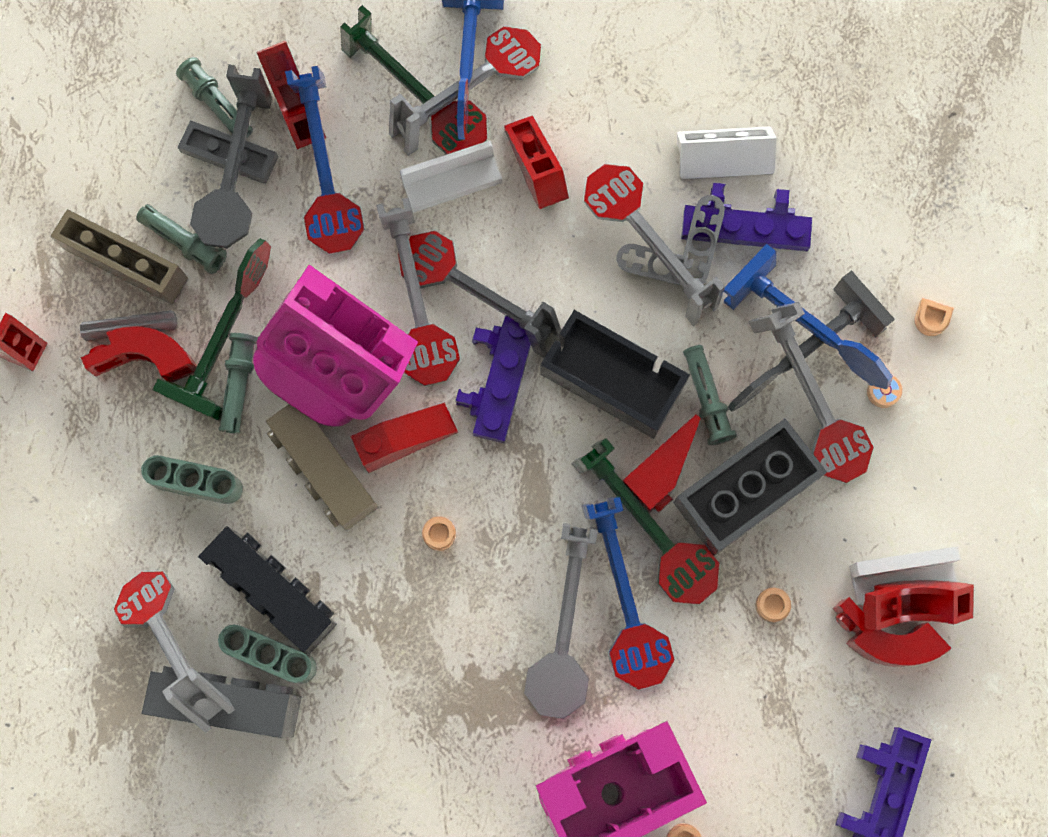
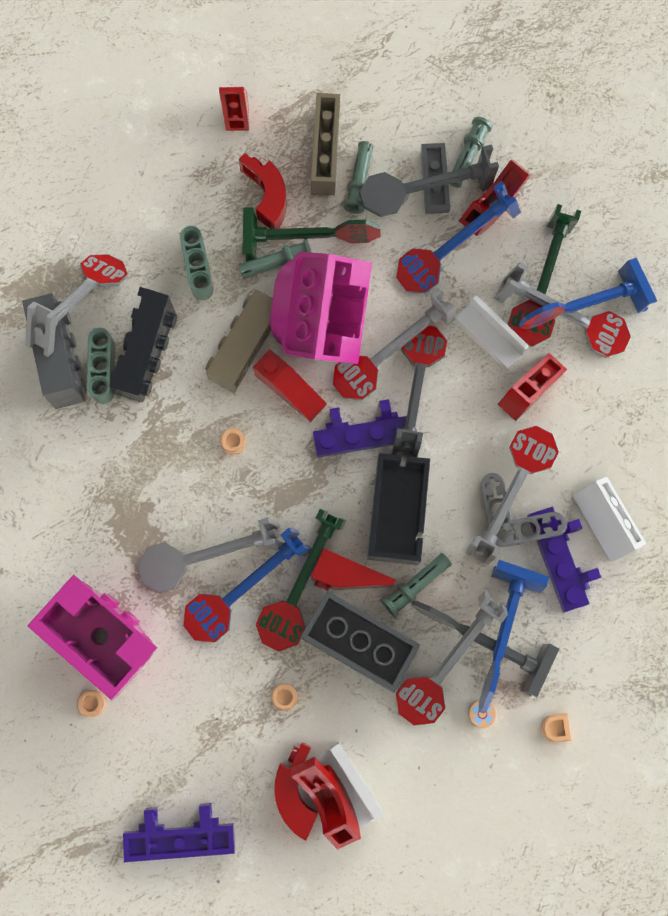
camera: 60 degrees right, 0 degrees up
(159, 321) = (291, 183): light grey axle -> none

